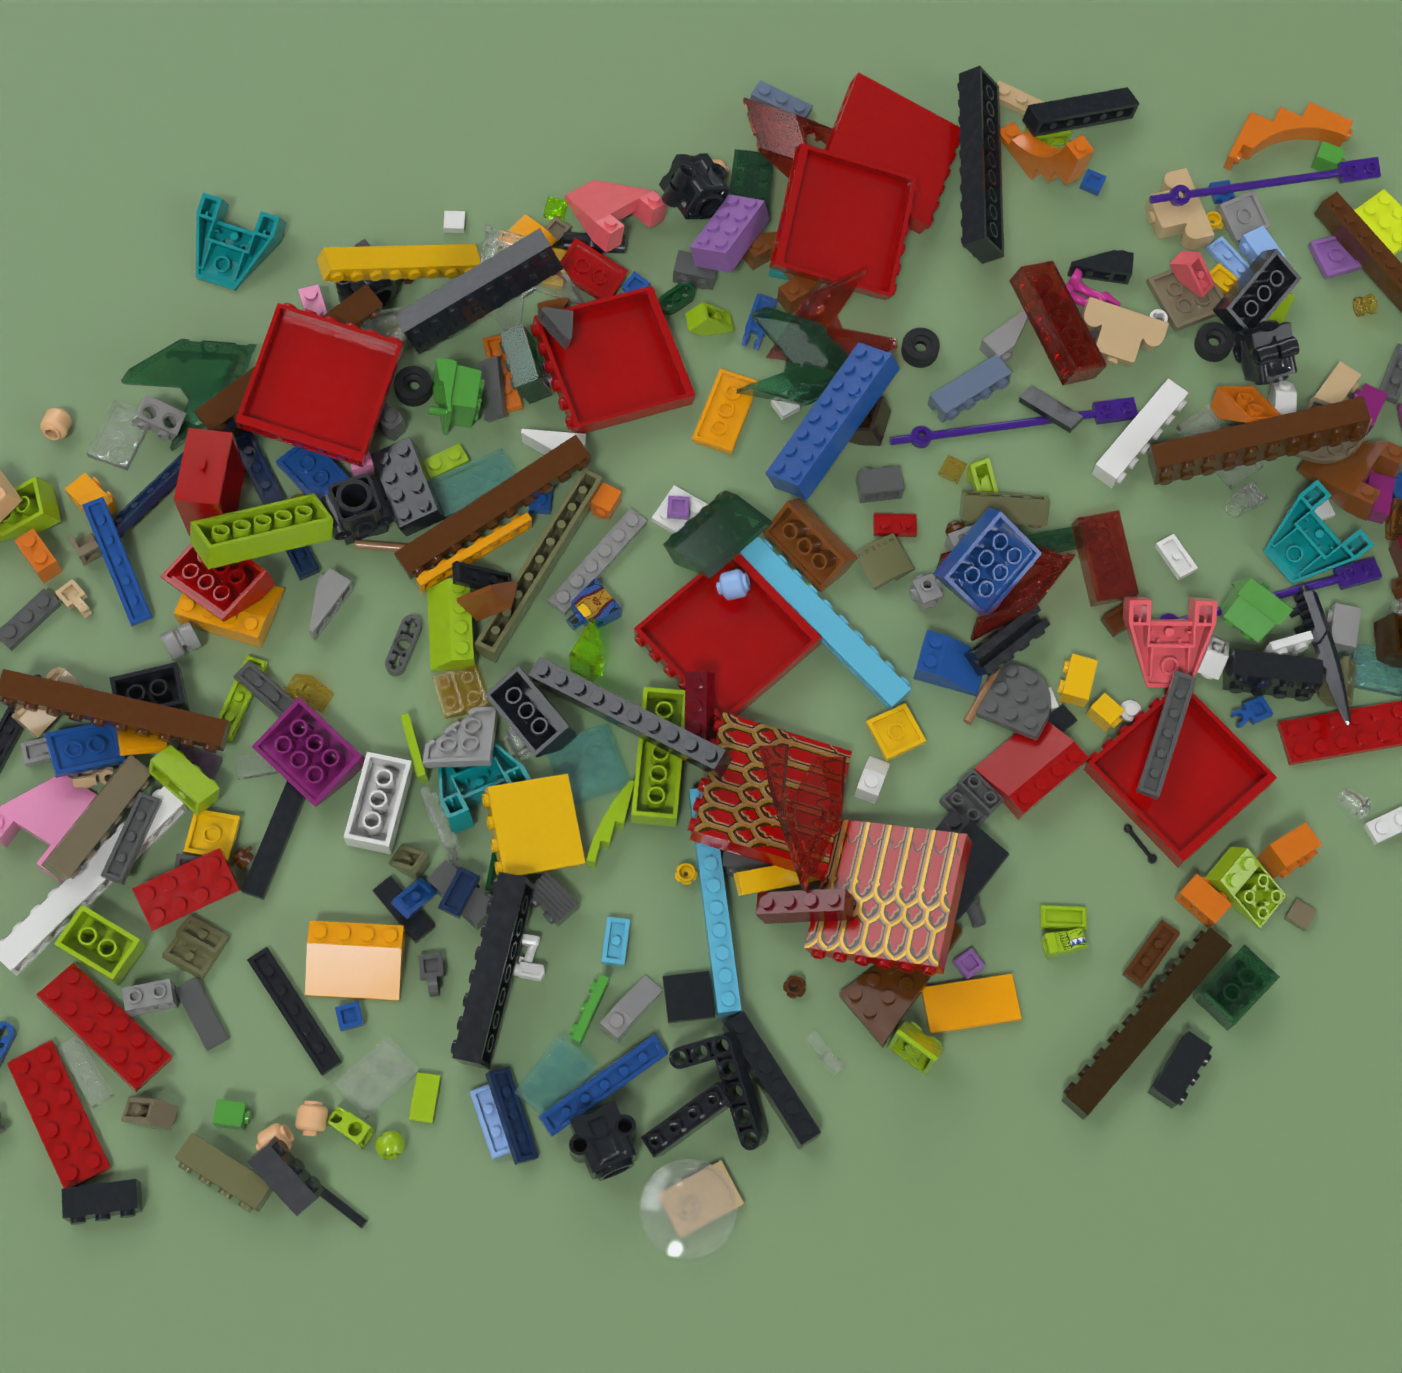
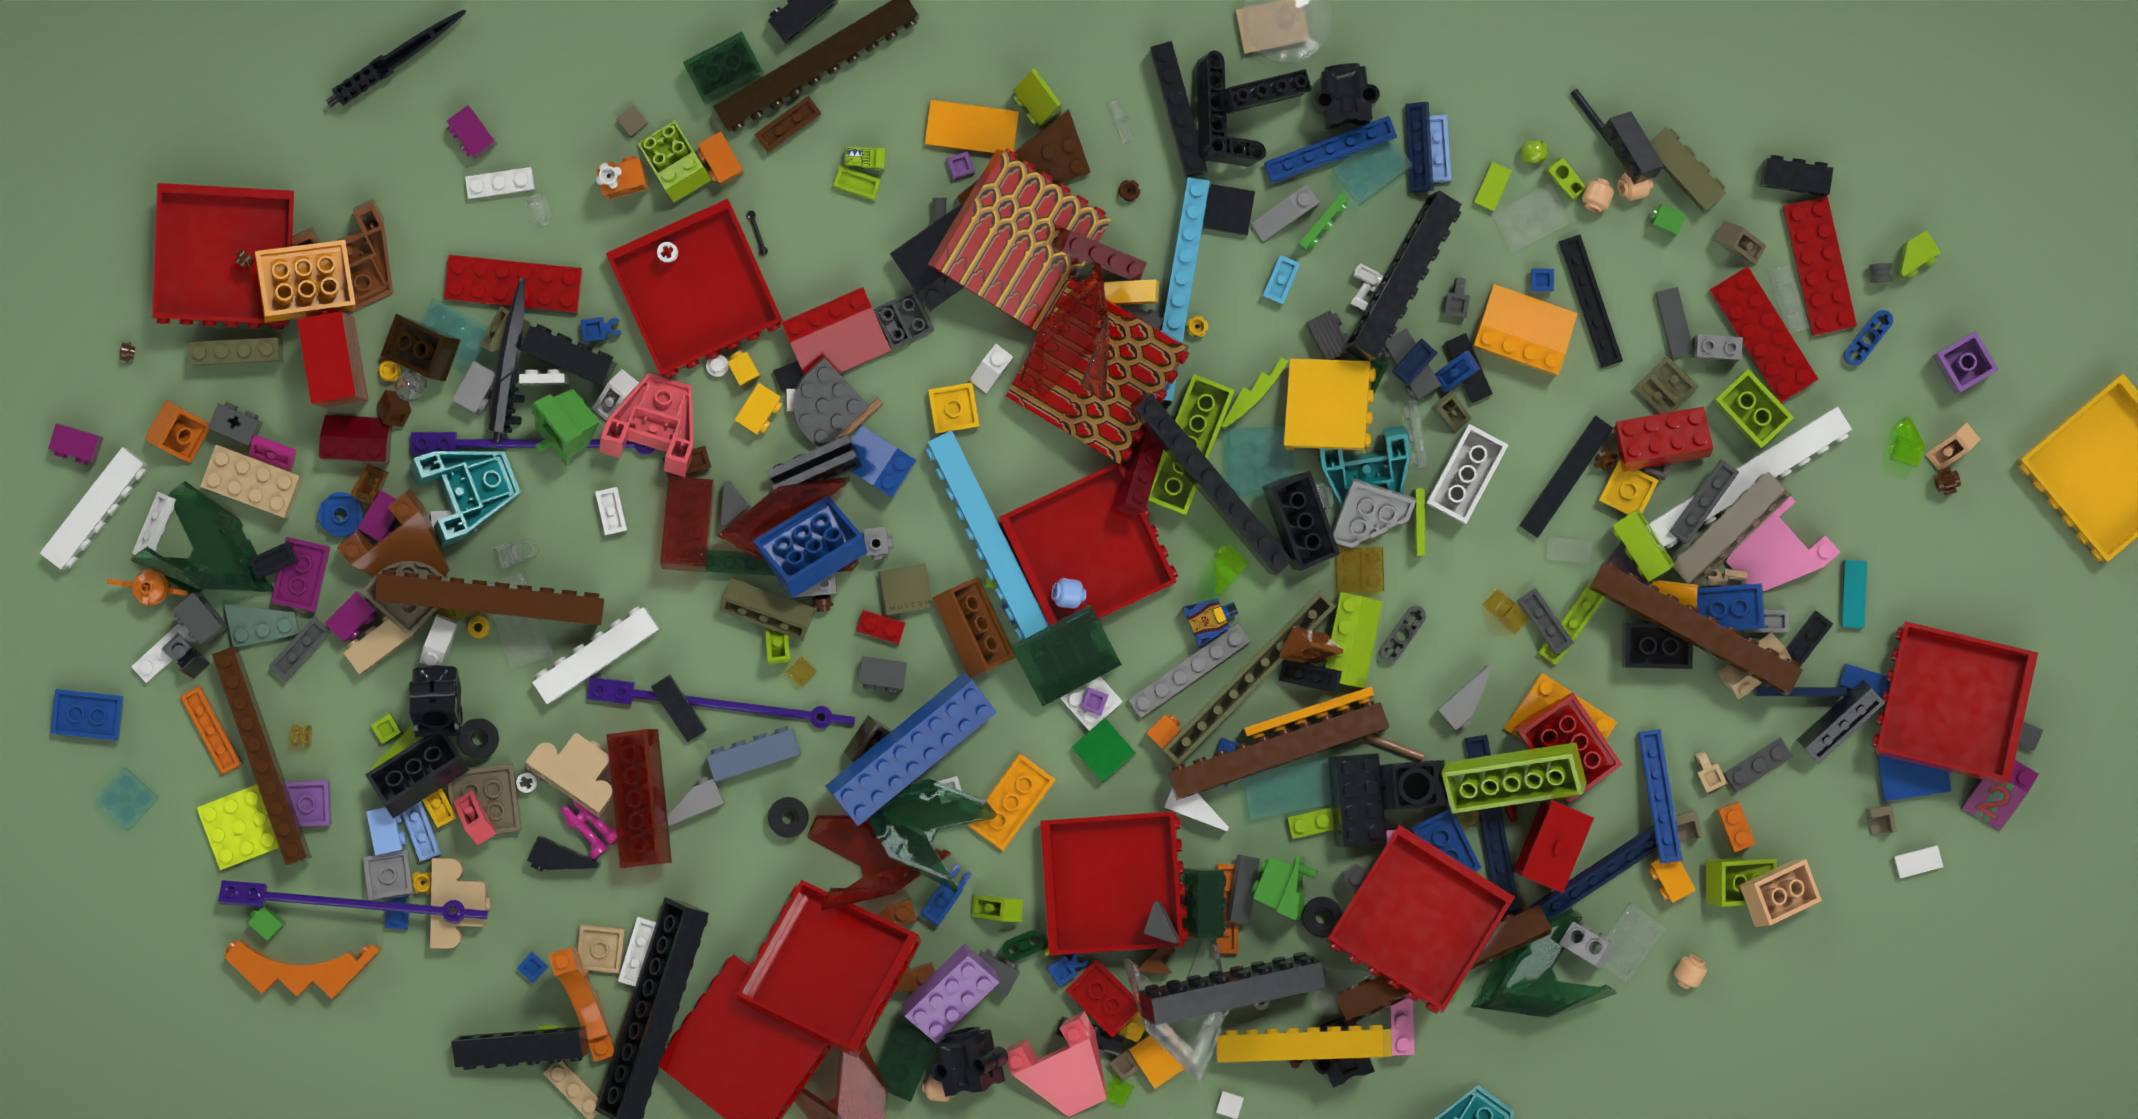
camera: 160 degrees left, 20 degrees up
(180, 641) = (1614, 696): light grey wheel -> none
(309, 752) = (1519, 543): magenta slope -> none
(656, 472) = (1103, 750): none -> green slope
(1011, 213) = (636, 951): none -> white plate
(1041, 209) = (601, 948): none -> tan tile
(1070, 592) = (732, 504): none -> dark grey slope
(1166, 735) = (698, 323): dark grey plate -> none
(1220, 787) = (674, 253): none -> white bush
(1241, 404) = (483, 643): orange slope -> none
(1299, 330) = (386, 728): none -> lime tile
(1314, 836) = (602, 178): none -> white plate

